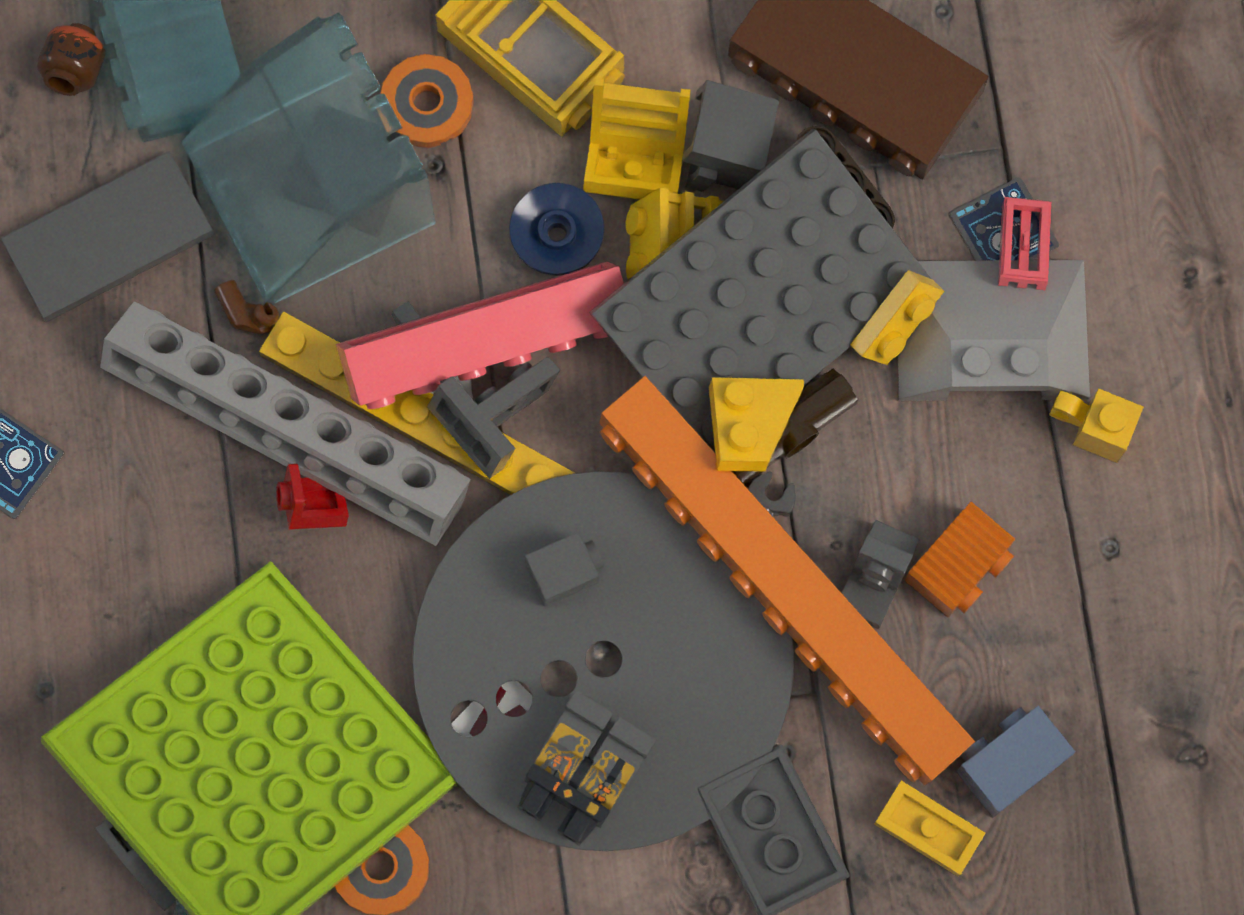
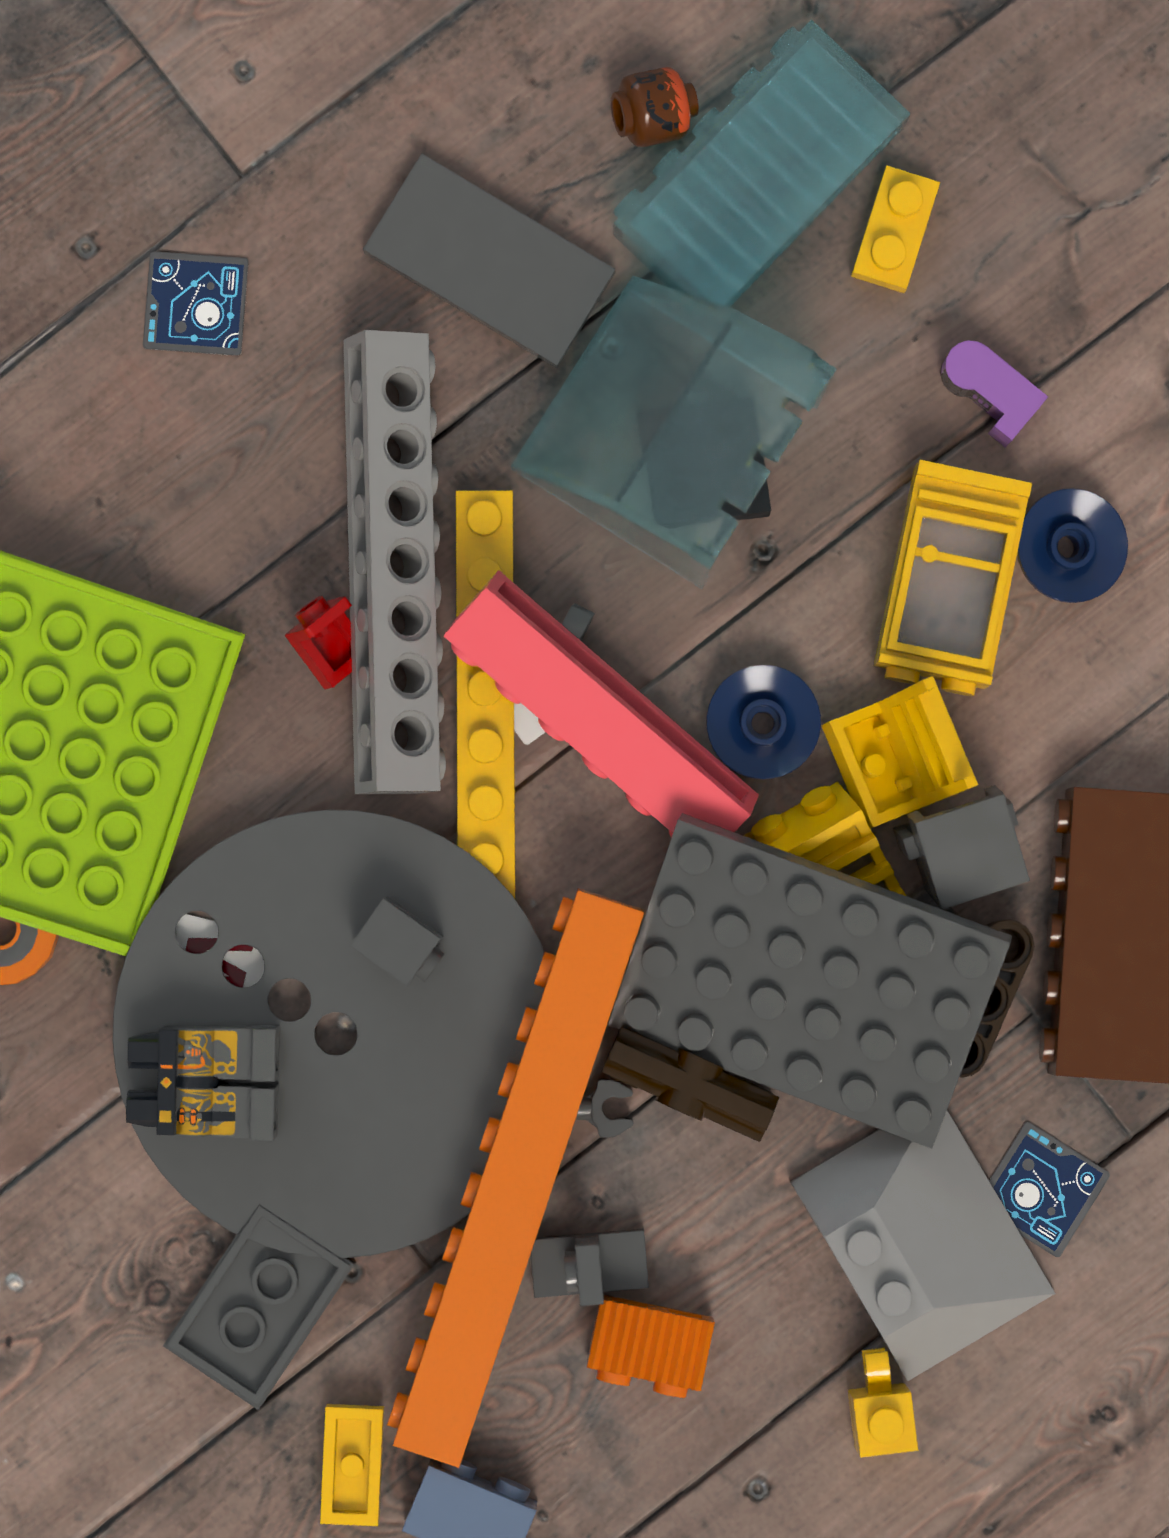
camera: 60 degrees right, 10 degrees up
(244, 315) = (486, 451): reddish brown arm -> none
(437, 76) = (835, 469): orange tile -> none
(476, 422) = (495, 762): dark grey bracket -> none
(750, 419) = (663, 1047): yellow wing -> none
(897, 318) = (883, 1139): yellow plate -> none
(1023, 275) = (993, 1241): coral tile -> none

